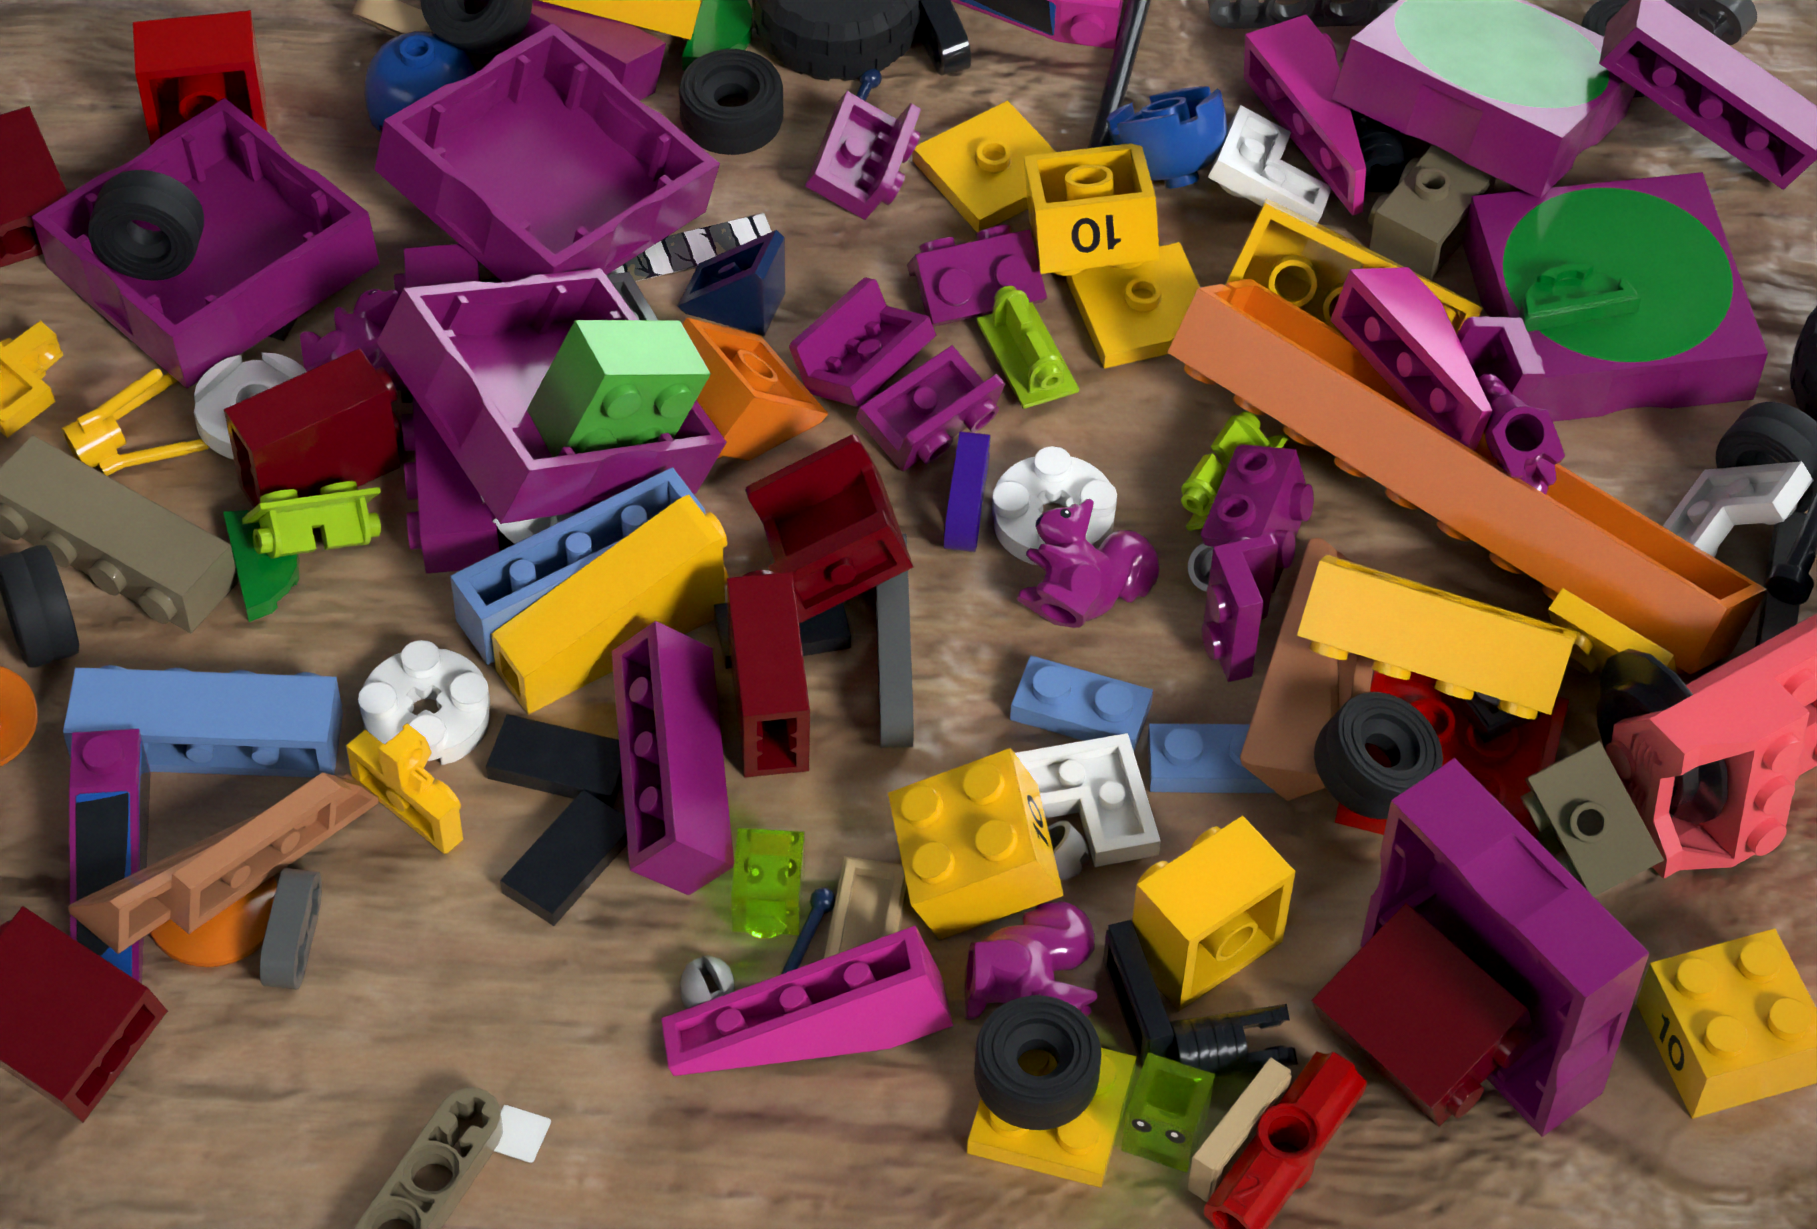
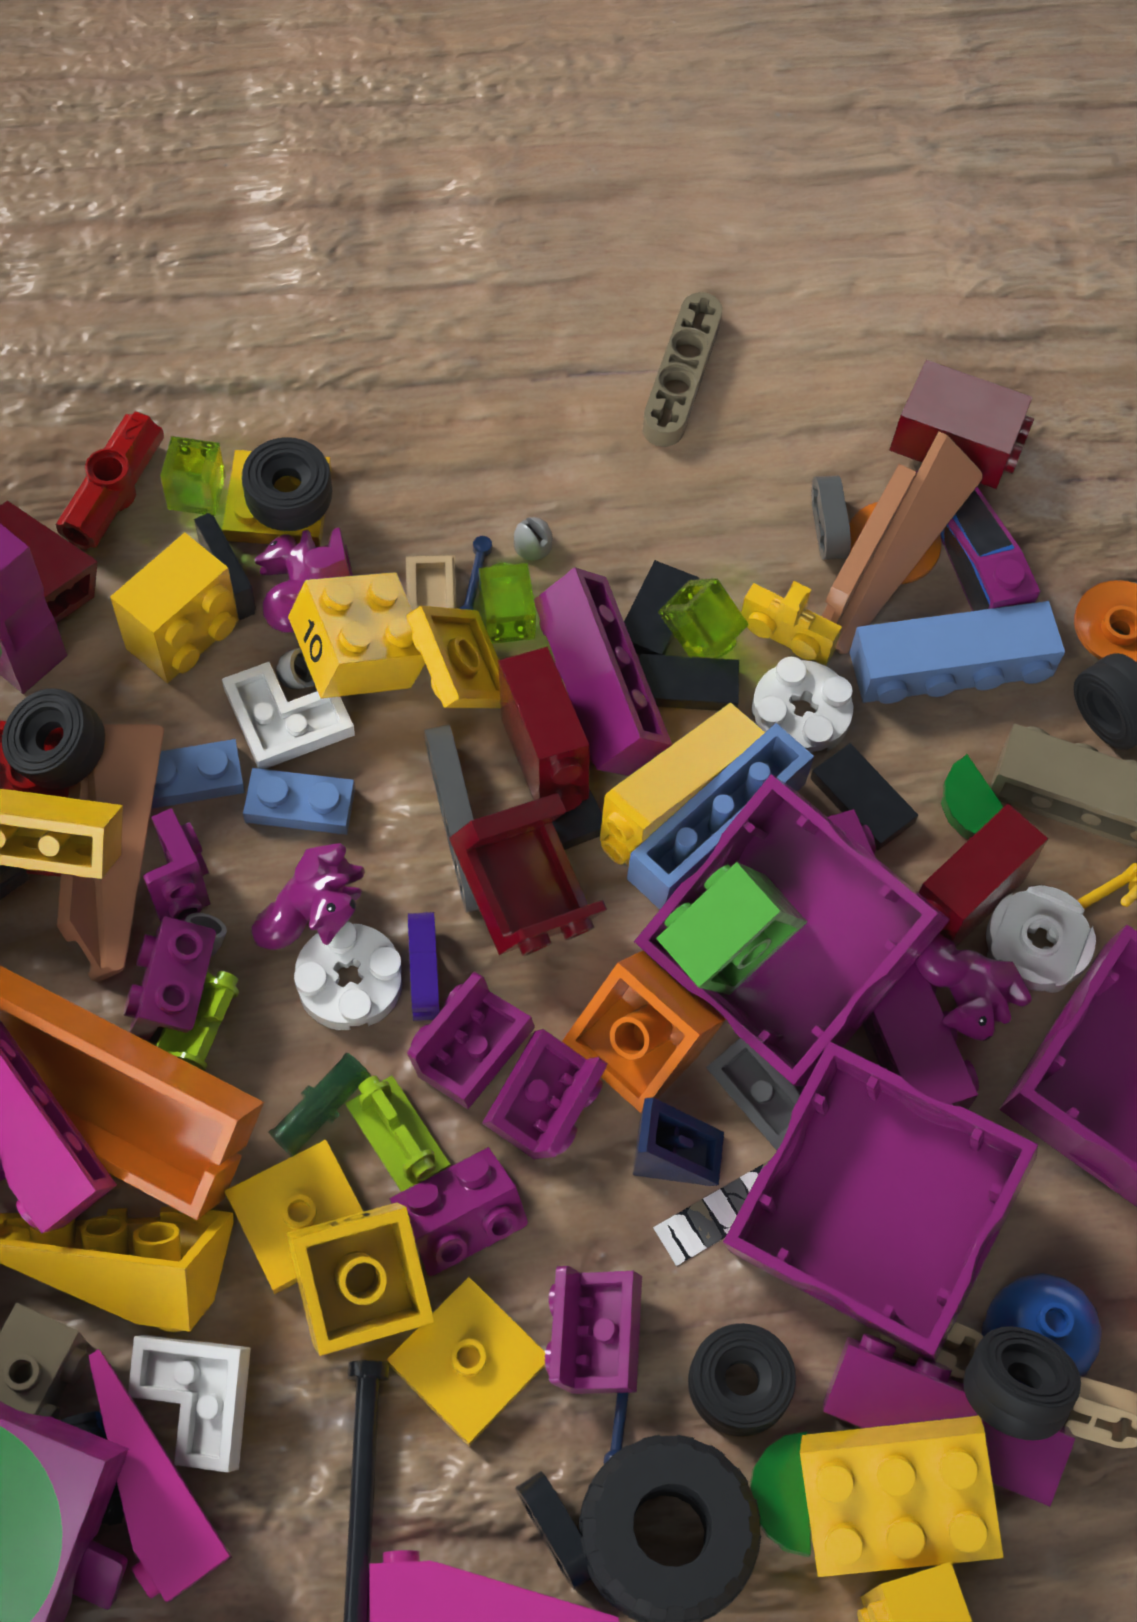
camera: 165 degrees right, 10 degrees up
(289, 520) = (931, 845): lime hinge -> none
(391, 593) = (858, 786): none -> black tile
(518, 801) = (704, 618): none -> clear neon green brick
(521, 1133) = (629, 432): white sticker -> none
(828, 1008) = (450, 515): dark pink slope -> none
(850, 784) = (457, 656): none -> yellow plate
(1106, 386) = (319, 1104): none -> clear green pin
(1177, 132) = (297, 1405): blue cylinder -> none
(1220, 1044) = (141, 548): black hinge -> none
(1237, 1129) = (139, 491): tan tile -> none

